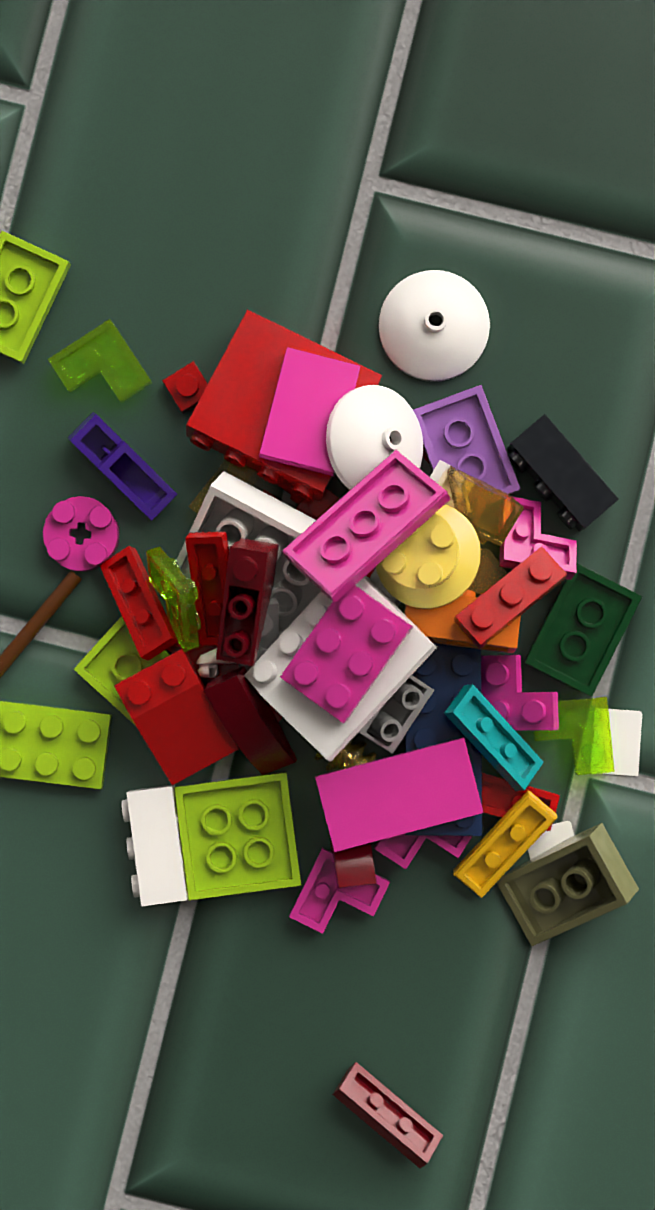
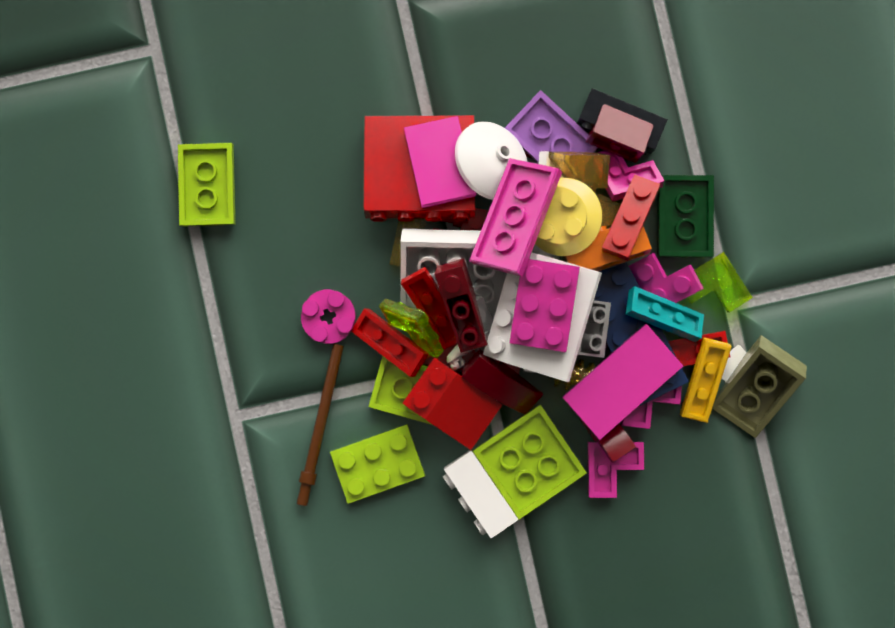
camera: 20 degrees left, 0 degrees up
(101, 352) = (282, 191): clear neon green plate -> none
(122, 466) = (333, 258): dark purple slope -> none
(186, 386) = (349, 186): red plate -> none
(388, 1115) = (718, 593): plate -> none
(431, 350) = (484, 84): white dish -> none
(551, 487) = (620, 133): none -> panel
(626, 739) = (749, 274): white sticker -> none

